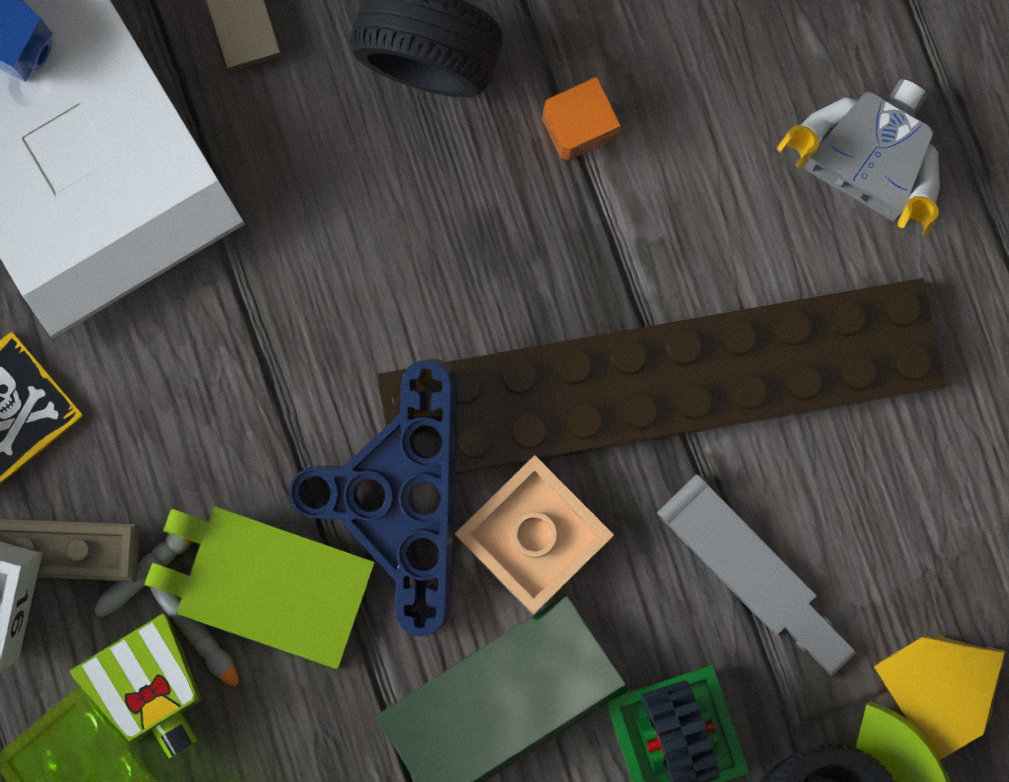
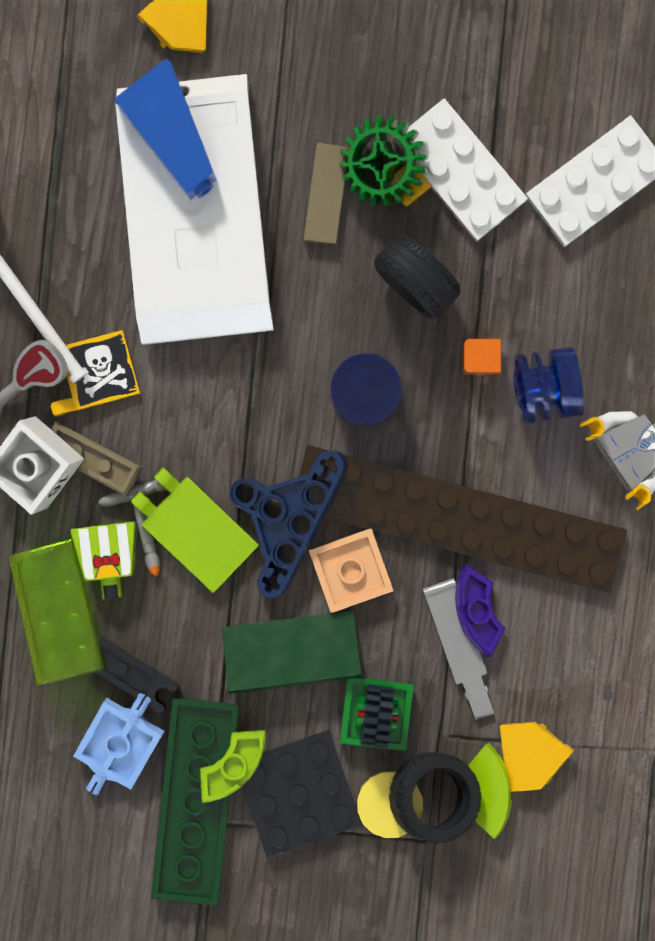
camera: 30 degrees right, 5 degrees up
(428, 248) = (365, 390): none -> clear blue wheel
(694, 117) = (549, 385): none -> clear blue wheel
(754, 508) = (475, 611): none -> dark purple tile

